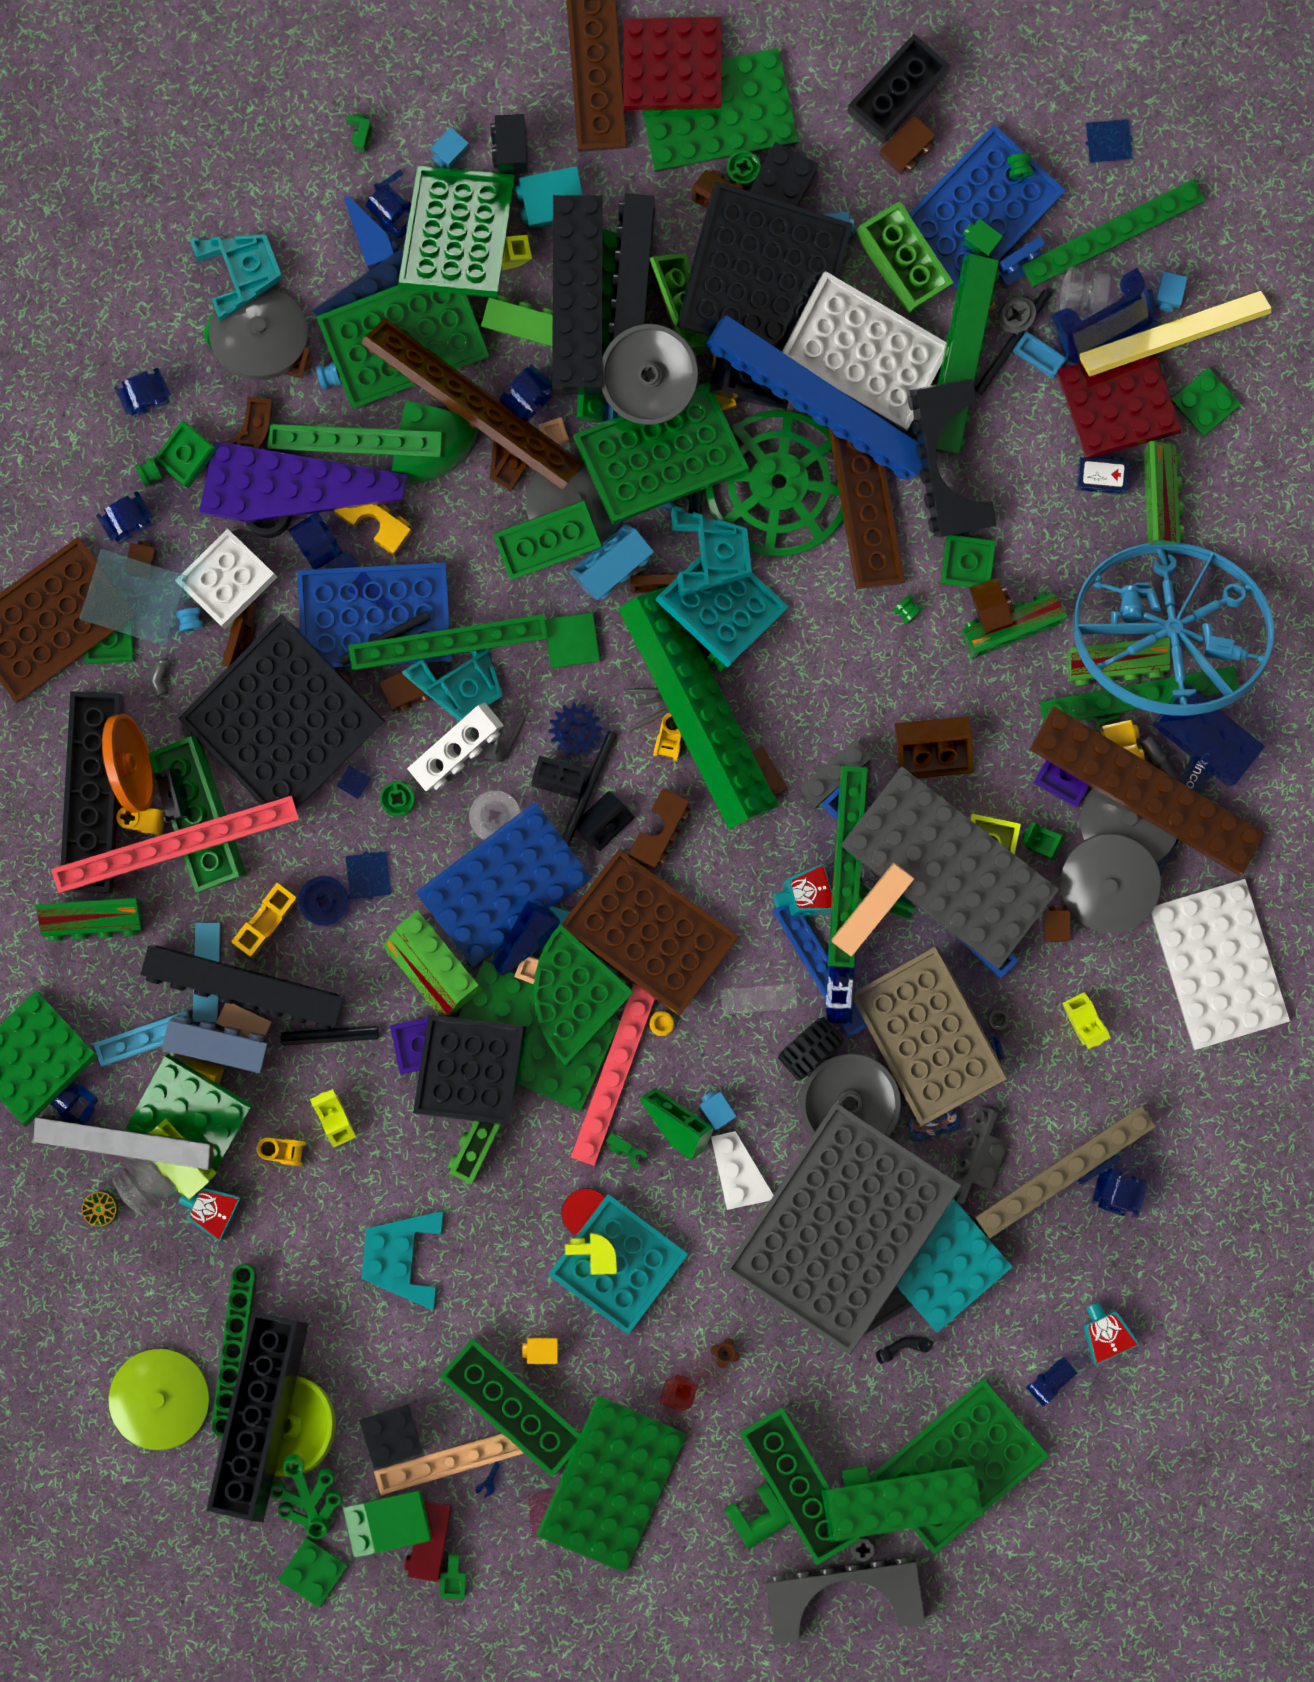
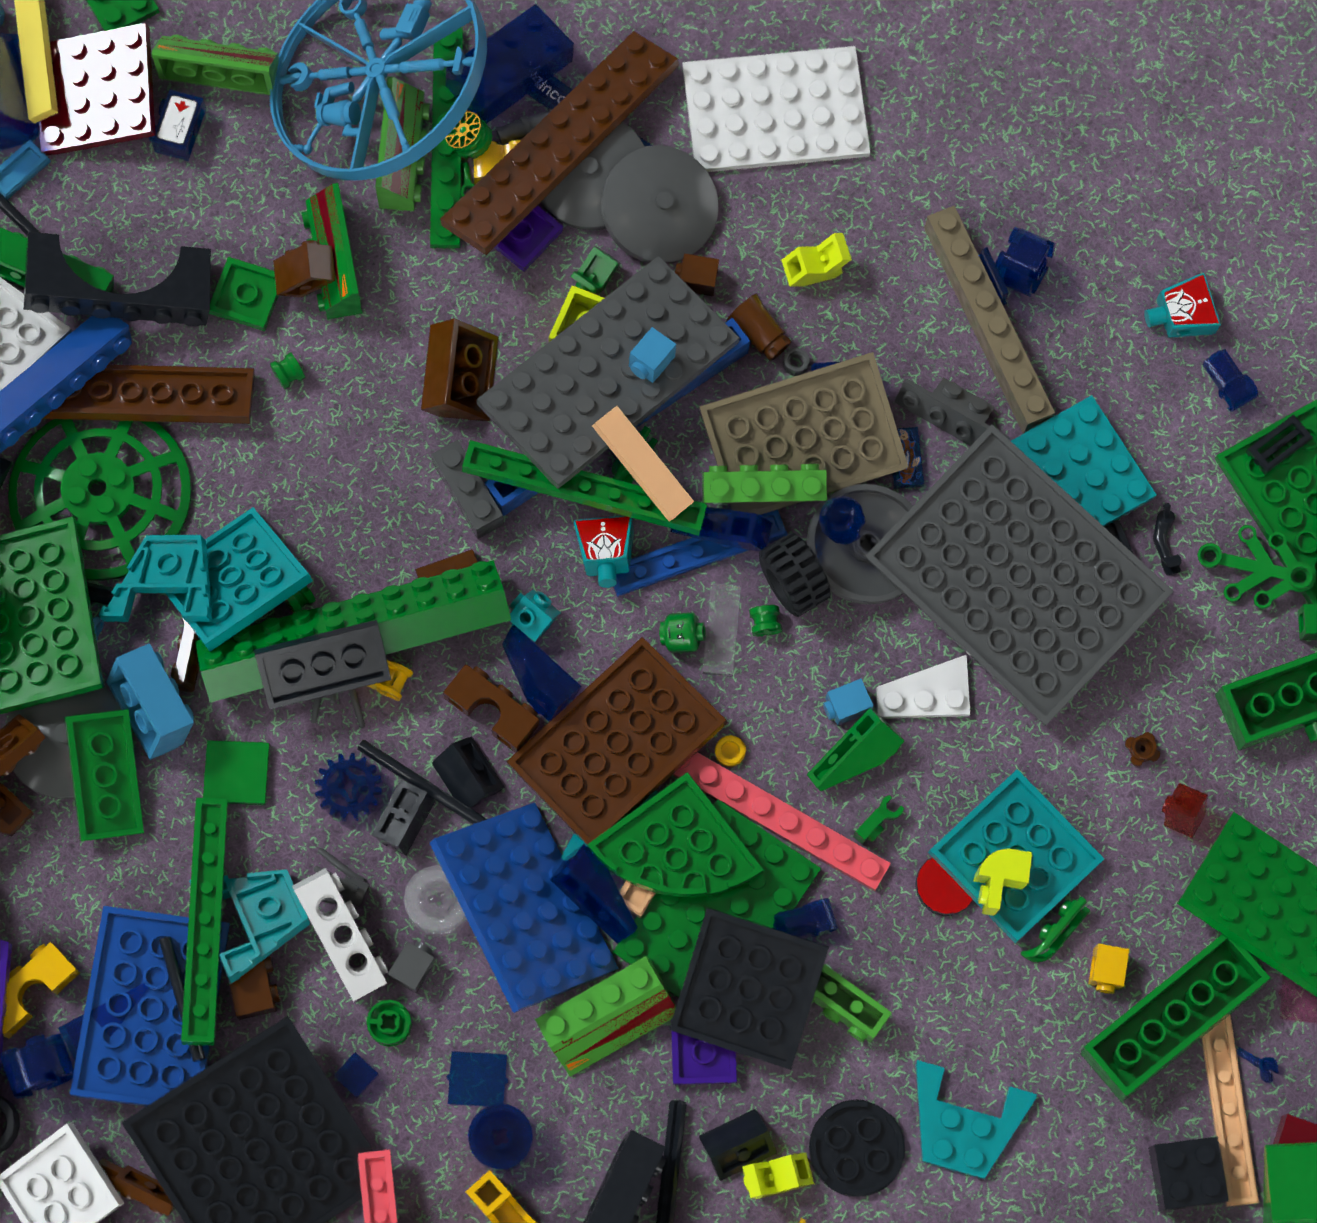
camera: 85 degrees left, 10 degrees down
(353, 1083) = (738, 1144): none -> black panel
(367, 1176) = (856, 1148): none -> black tile
(444, 808) = (412, 966): none -> dark grey brick
(537, 1111) = (808, 919): none -> clear blue piece
(559, 1305) = (1051, 934): none -> green piece
(660, 689) = (322, 664): none -> black plate
(688, 864) = (540, 678): none -> clear blue slope
(740, 846) = (533, 613): none -> teal brick
(748, 967) = (682, 632): none -> green head
(772, 1032) = (765, 620): none -> green wheel
(860, 1078) = (842, 519): none -> clear blue hair
(879, 1010) = (764, 486): none -> bright green brick
(892, 1428) = (1262, 568): none -> green plant
(963, 899) = (651, 355): none -> dark azure brick
(985, 1414) = (1260, 459): none -> black tile
(1019, 984) = (760, 327): none -> reddish brown plant
(1135, 724) = (470, 136): none -> green wheel

